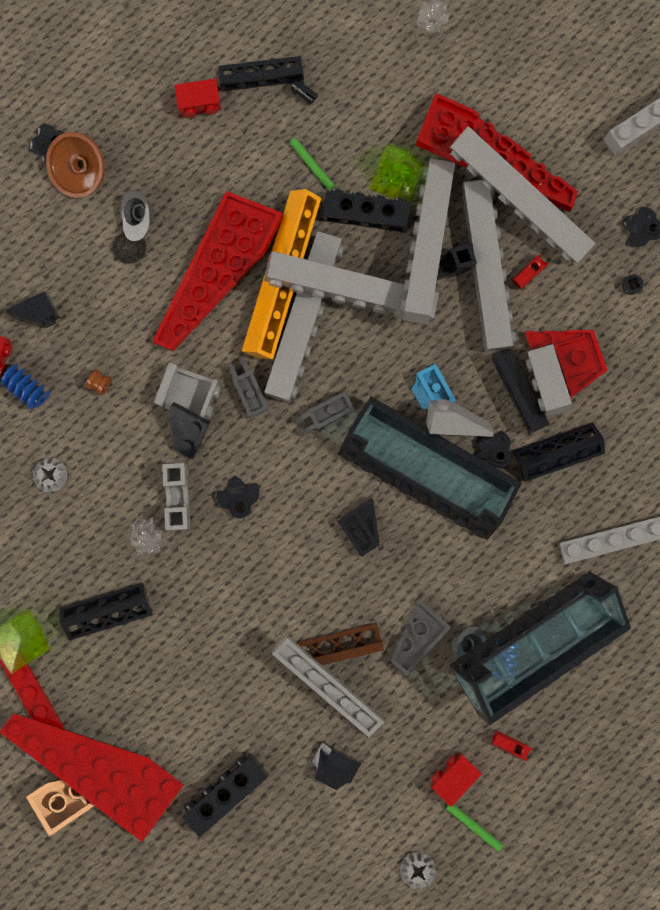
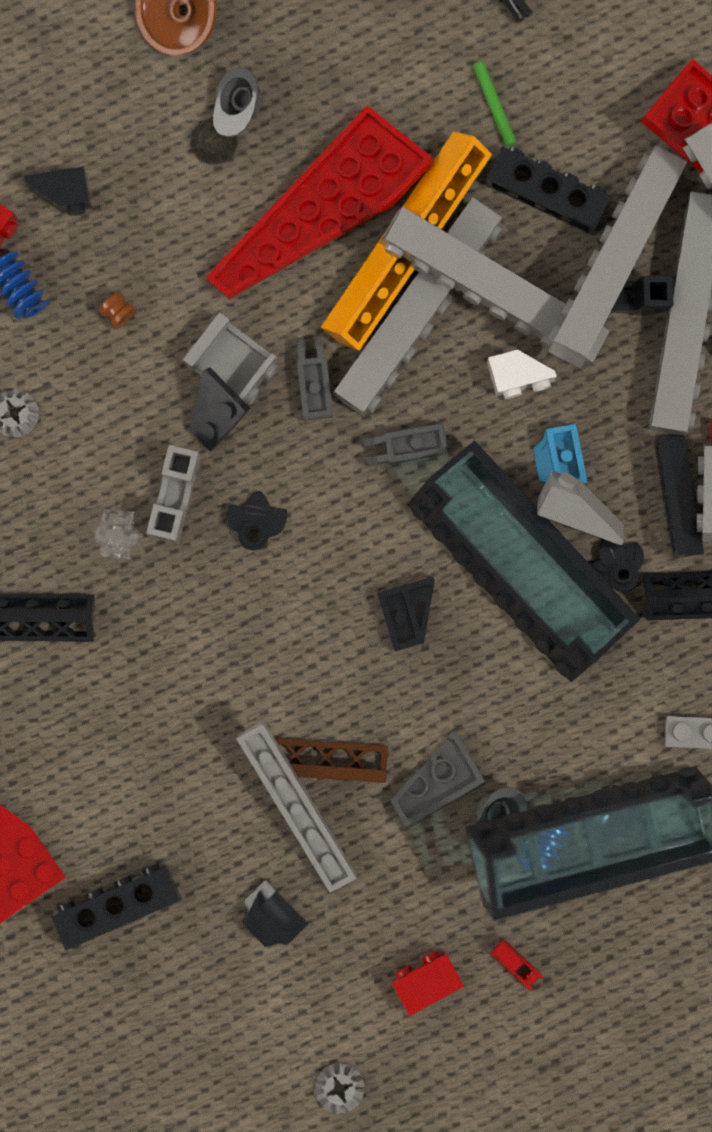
camera: 20 degrees right, 0 degrees up
(384, 340) = (517, 372): none -> white slope
(396, 173) = (604, 151): clear neon green slope -> none
(475, 827) = (433, 1055): bright green bar -> none

